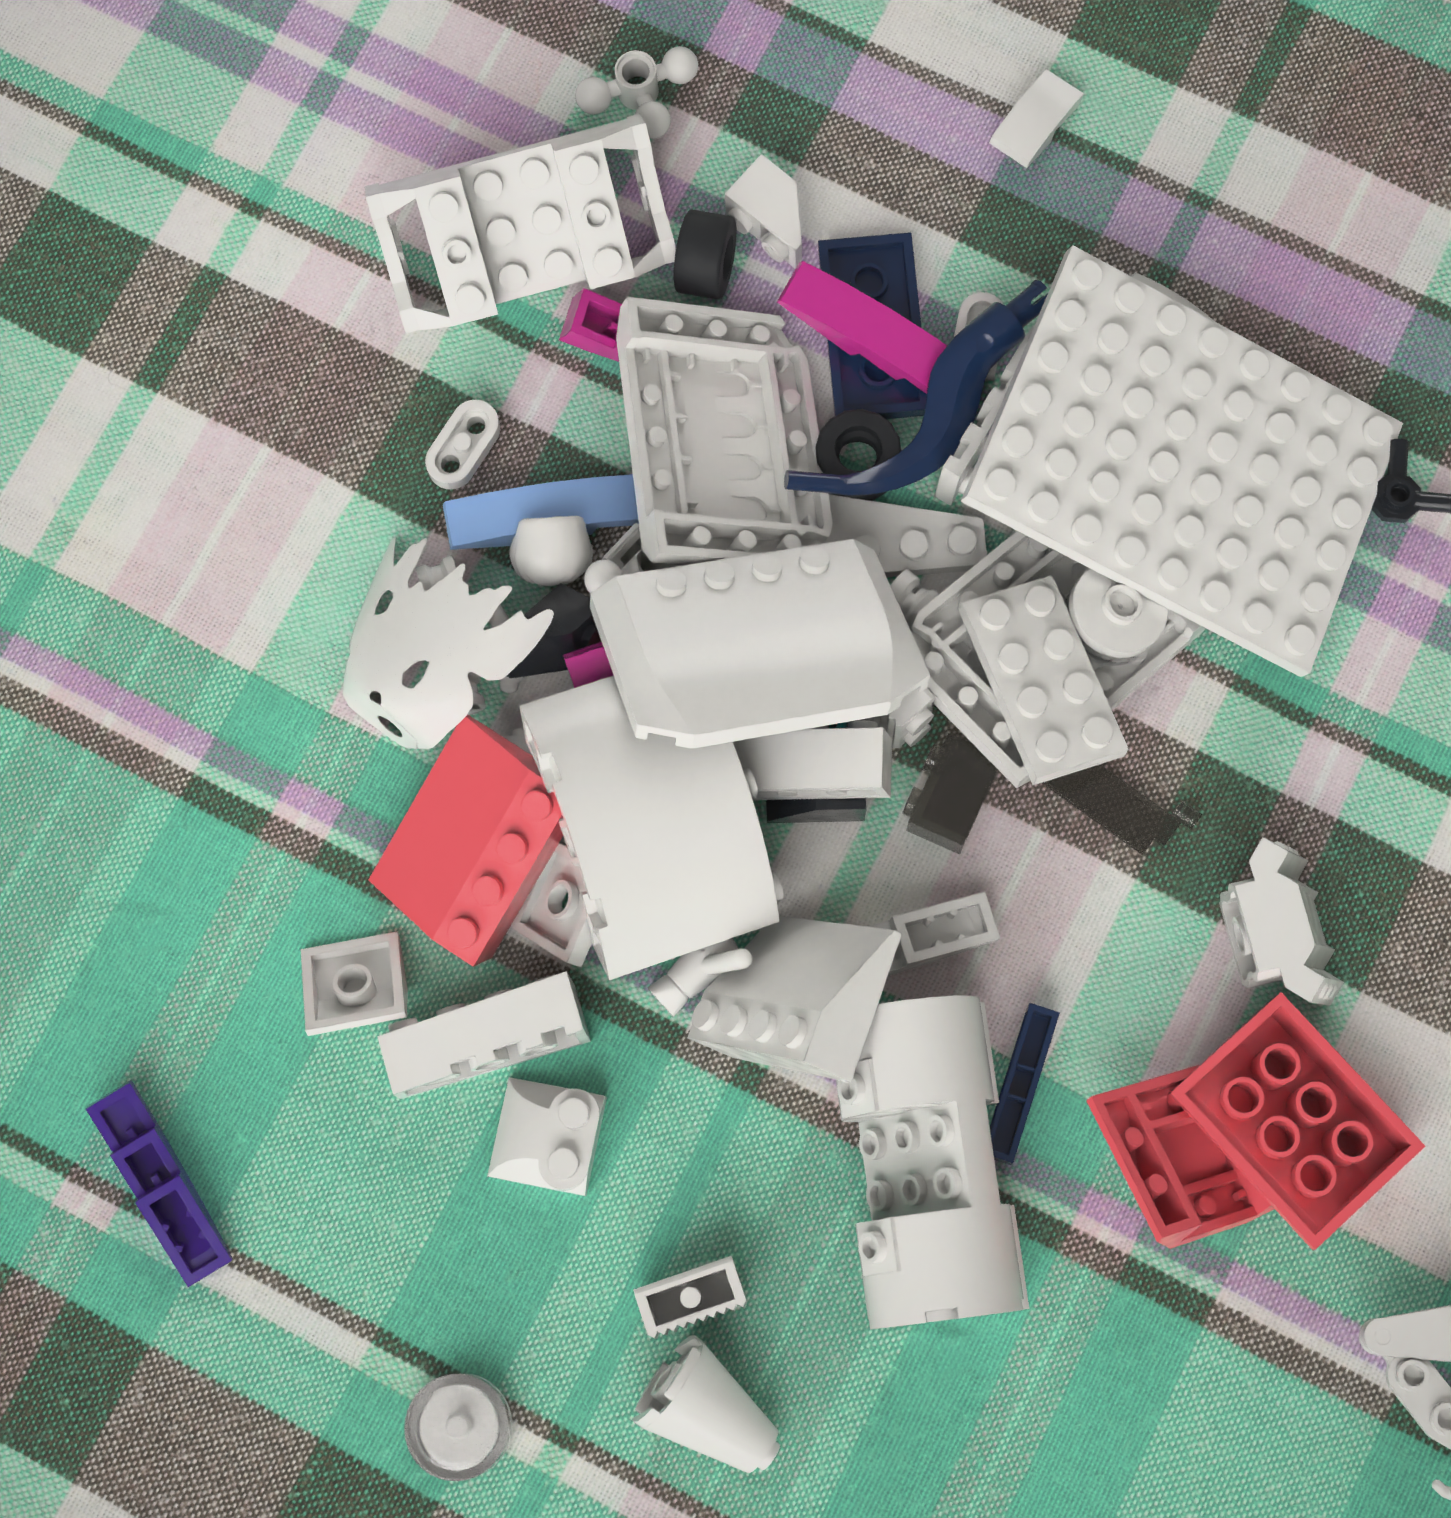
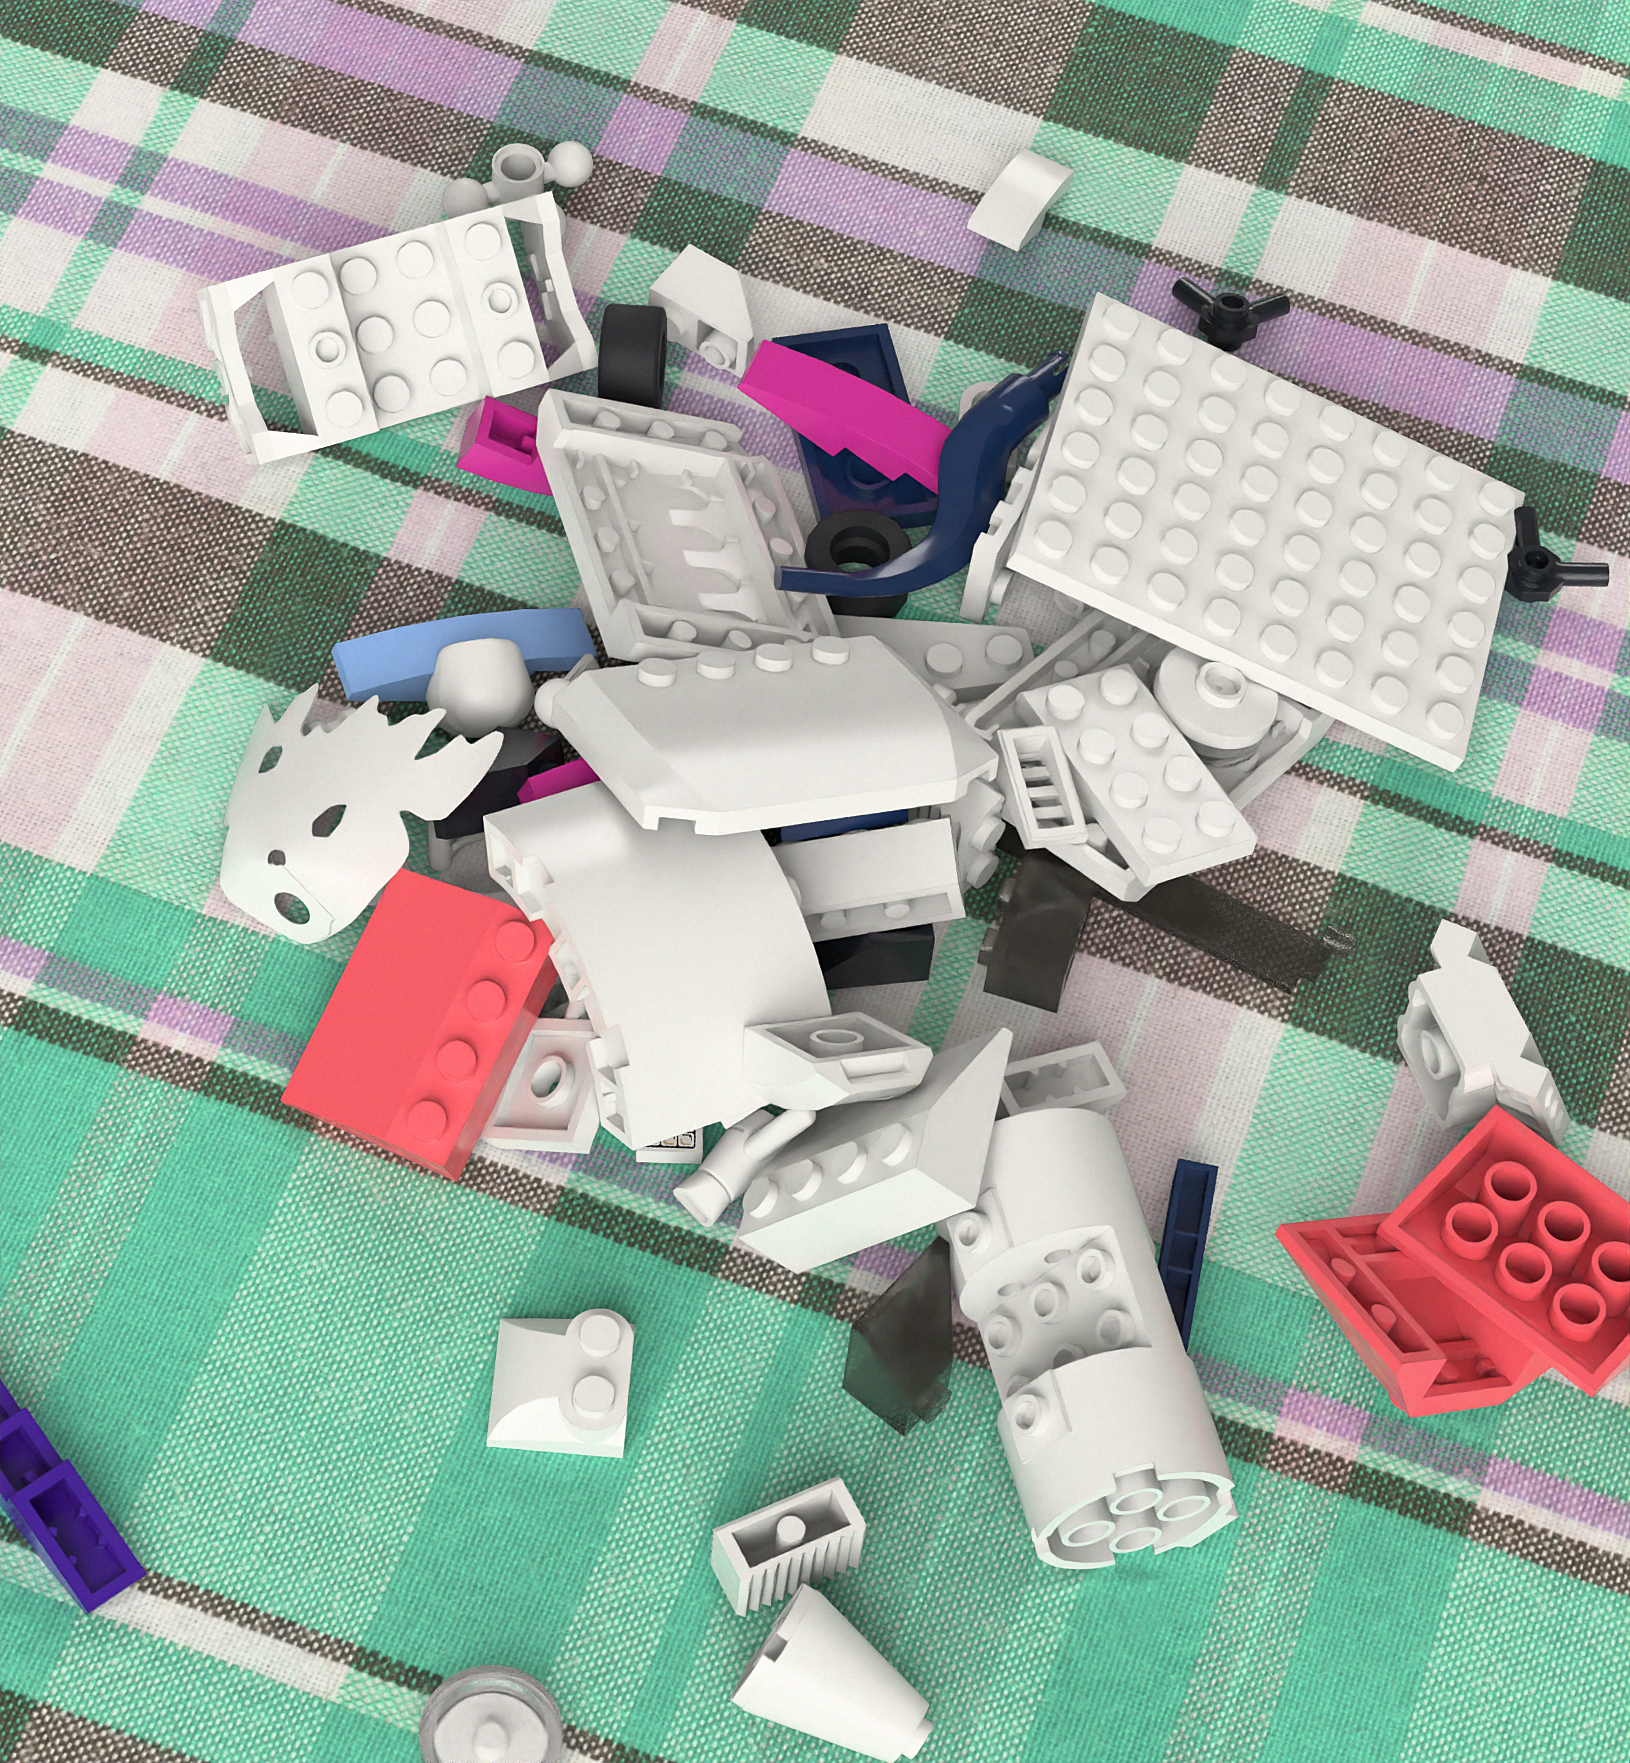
camera: 20 degrees left, 20 degrees down
(353, 983) = (276, 1216): white slope -> none
(460, 445) = (343, 594): white plate -> none
(483, 1035) = (471, 1255): white wedge -> none
(768, 932) = (831, 1061): none -> white slope
(802, 1144) = (904, 1345): none -> clear smoke slope
(974, 655) = (1046, 748): none -> white slope
(1188, 244) = (1229, 316): none -> black piece

